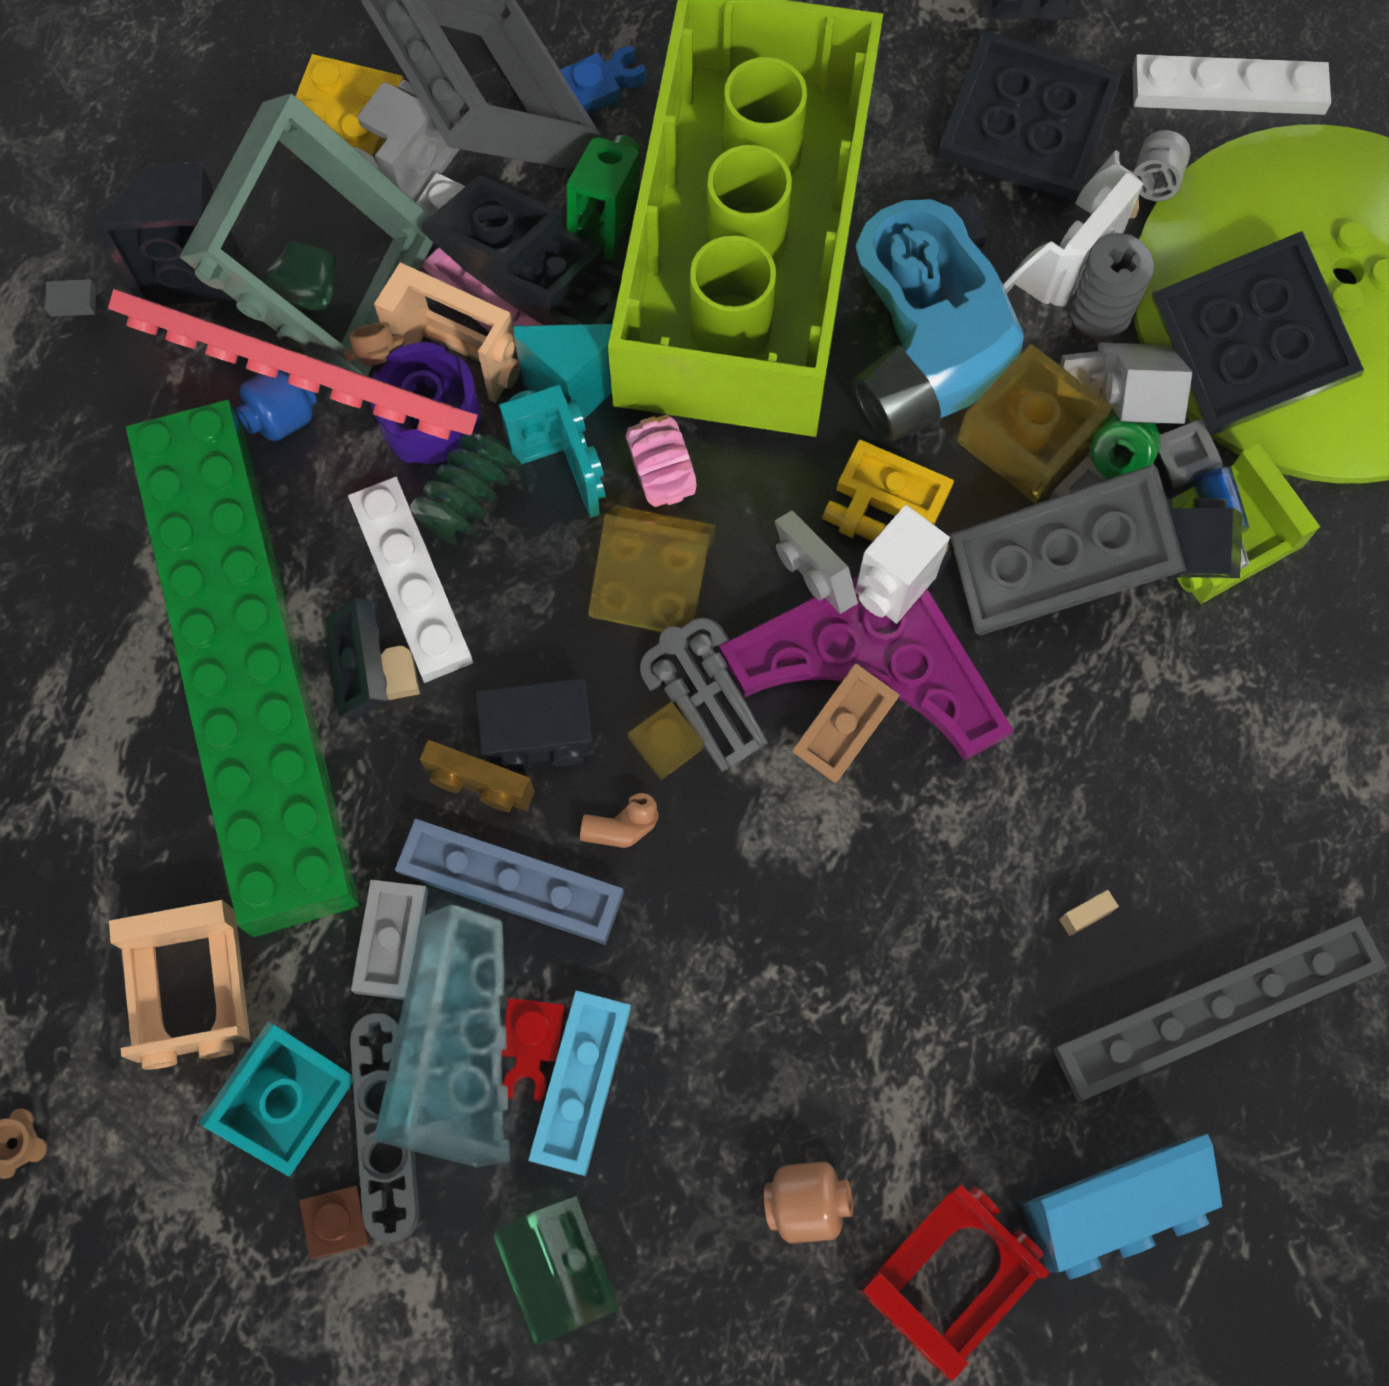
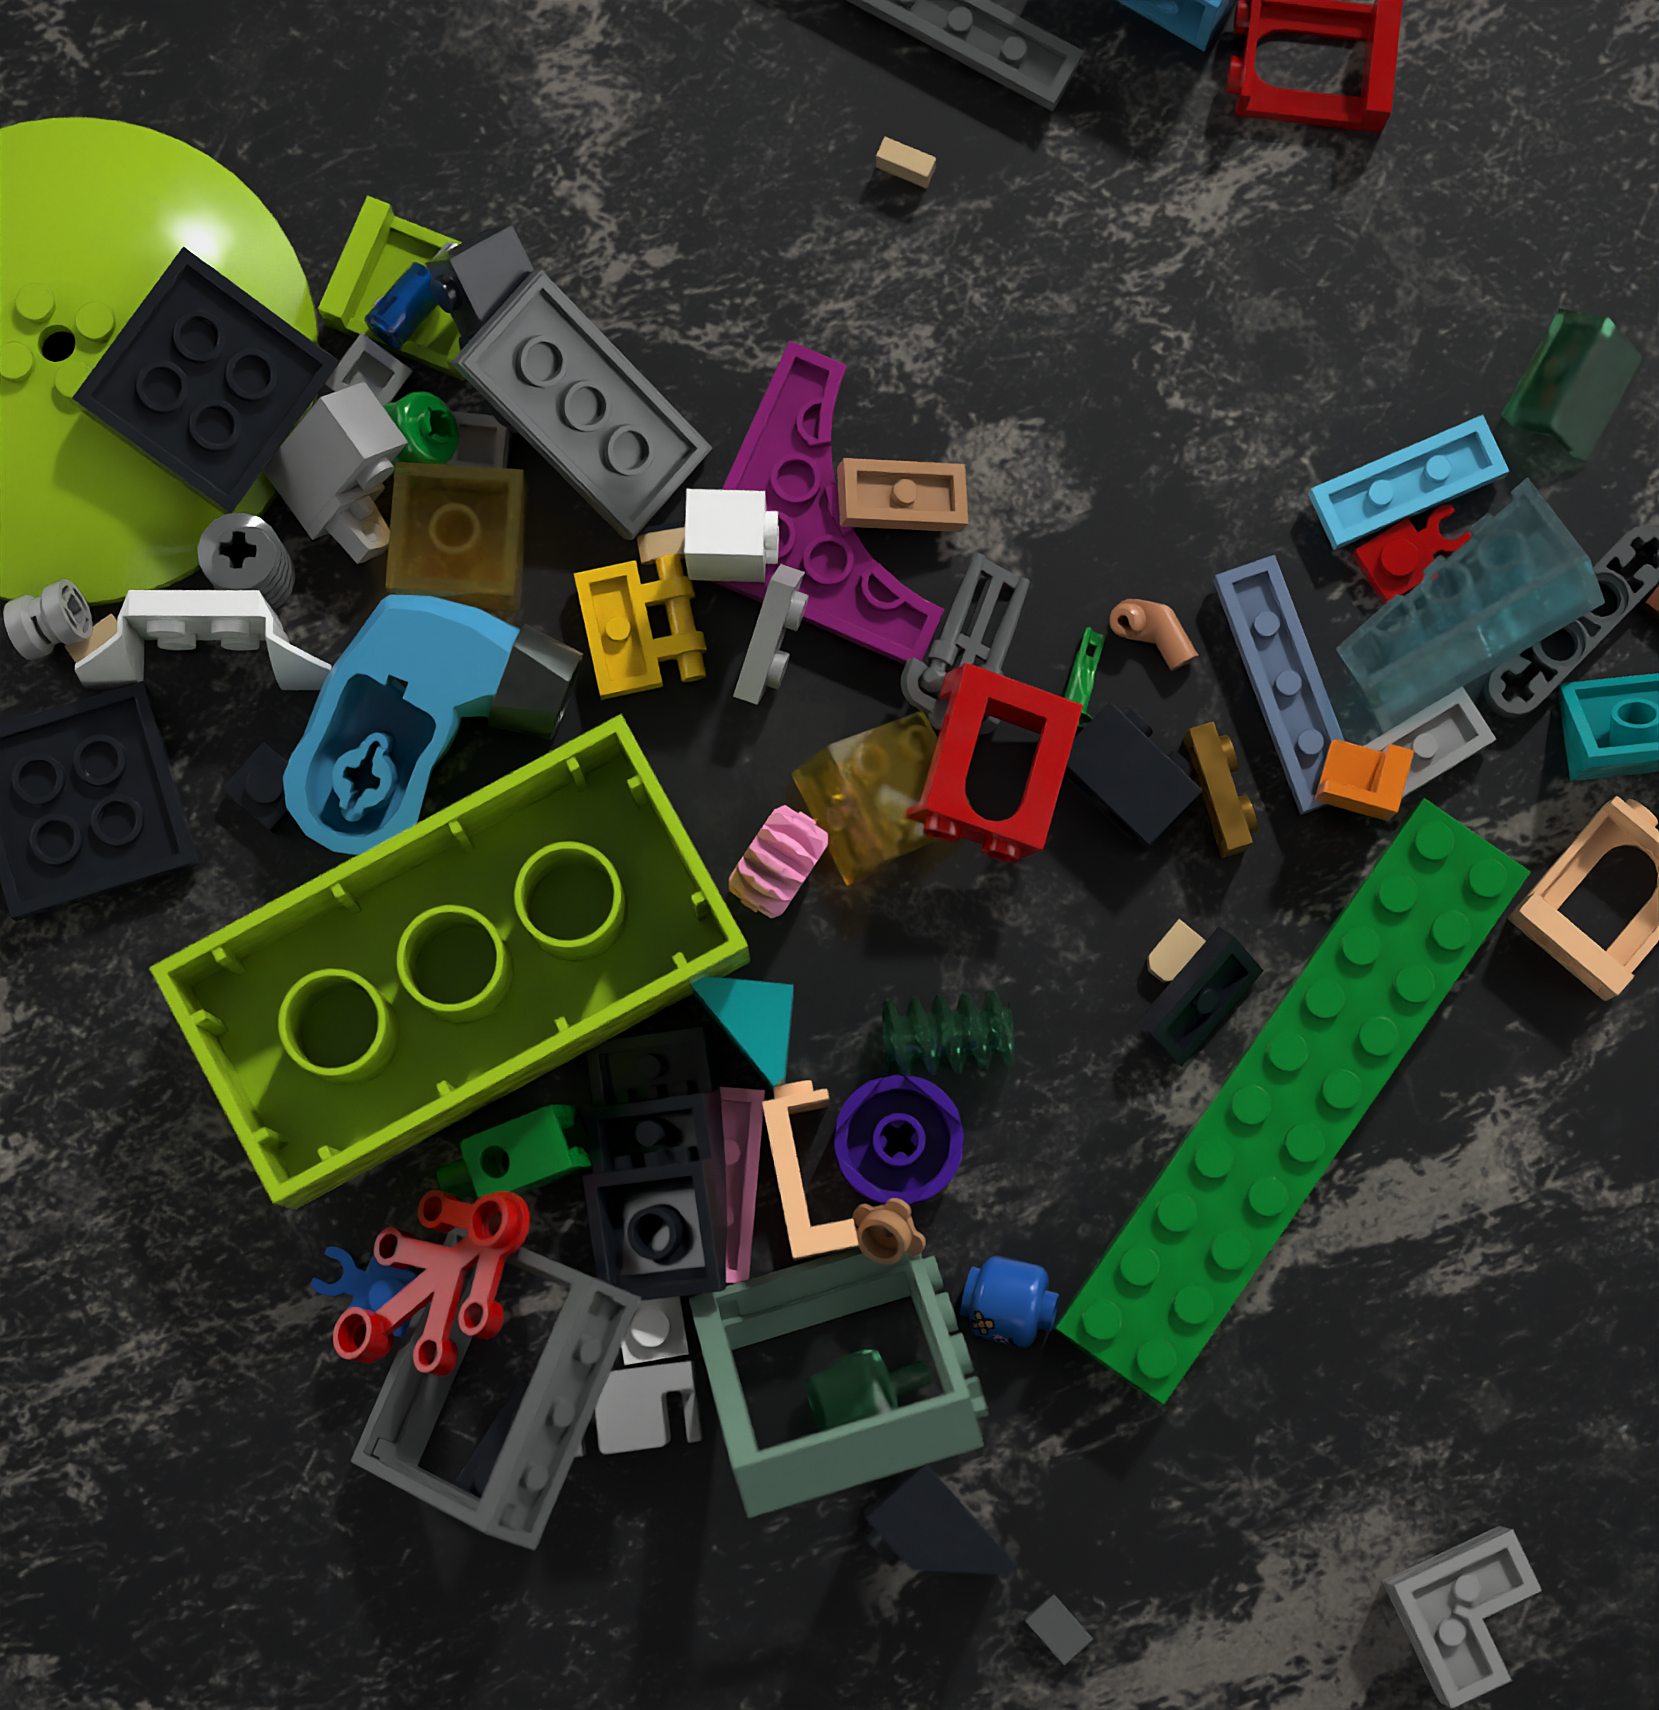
camera: 130 degrees left, 10 degrees up
(305, 371) = (975, 1288): coral plate -> none
(337, 95) = (623, 1536): yellow plate -> none
(398, 866) = (1364, 778): none -> orange panel
(410, 580) = (1076, 1021): white plate -> none
(547, 424) = (840, 1009): teal bracket -> none
(565, 112) = (495, 1230): none -> red plant
(624, 747) = (1083, 674): none -> green piece
(666, 740) = (1042, 653): clear yellow plate -> none
(670, 644) = (944, 802): none -> red panel
(807, 1202) = (1352, 216): nougat head -> none

